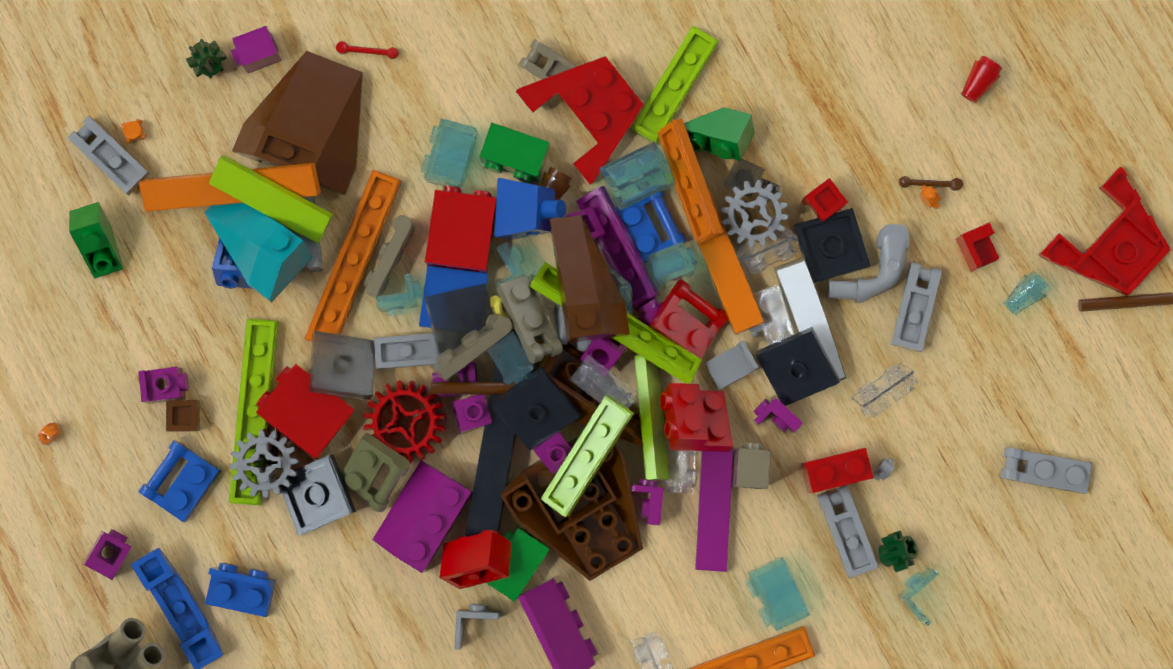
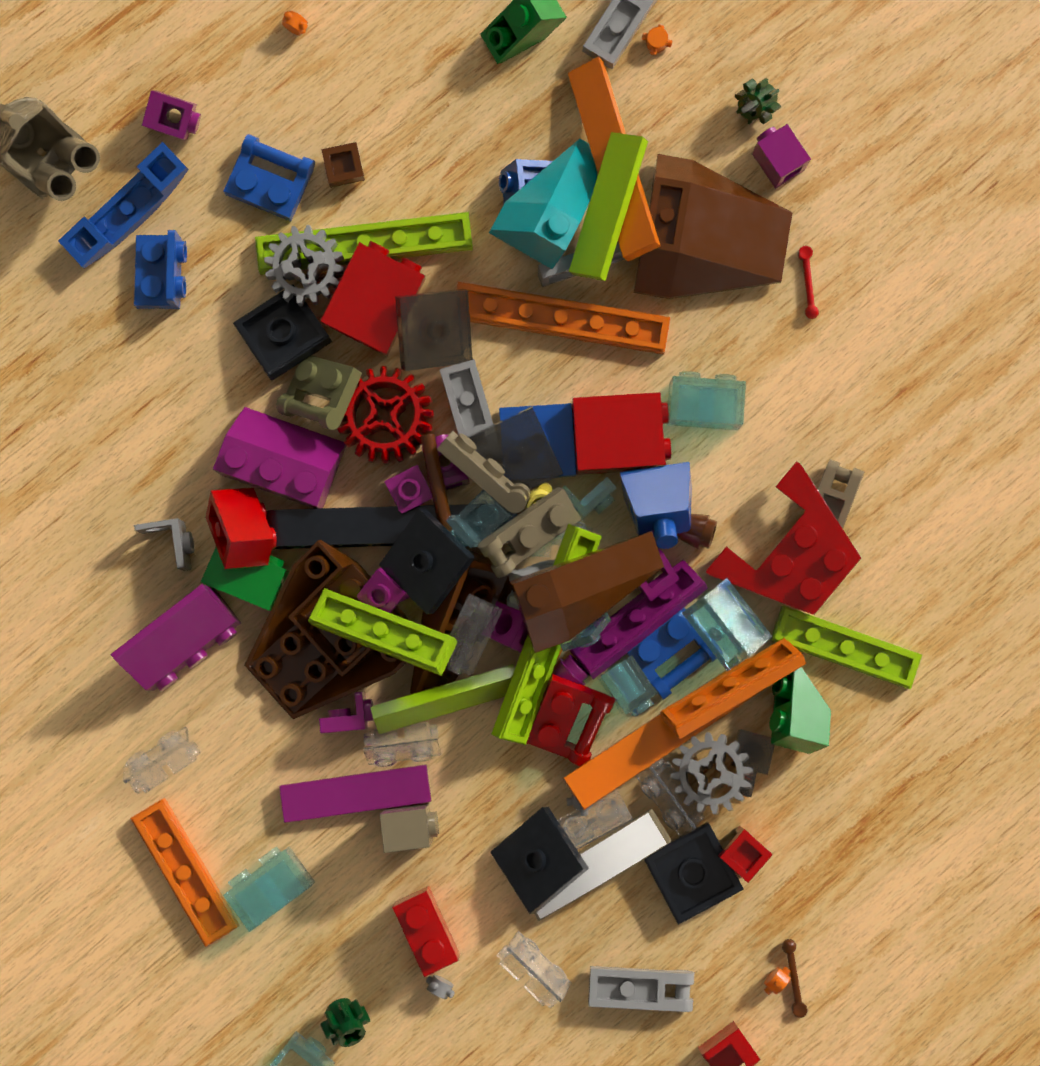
camera: 70 degrees right, 0 degrees up
(150, 386) = (369, 121): magenta brick -> none
(390, 256) = (572, 358): dark tan plate -> none
(396, 303) = (519, 376): clear light blue bracket -> none
(514, 153) = (723, 475): green brick -> none
(696, 418) = (453, 751): red plate -> none
(731, 365) = (525, 780): light grey bracket -> none
(783, 417) = (476, 854): magenta bracket -> none
(847, 532) = (355, 958): light grey plate -> none
(893, 245) = (710, 947): light grey piece -> none
(981, 79) = (934, 1015): red cone -> none

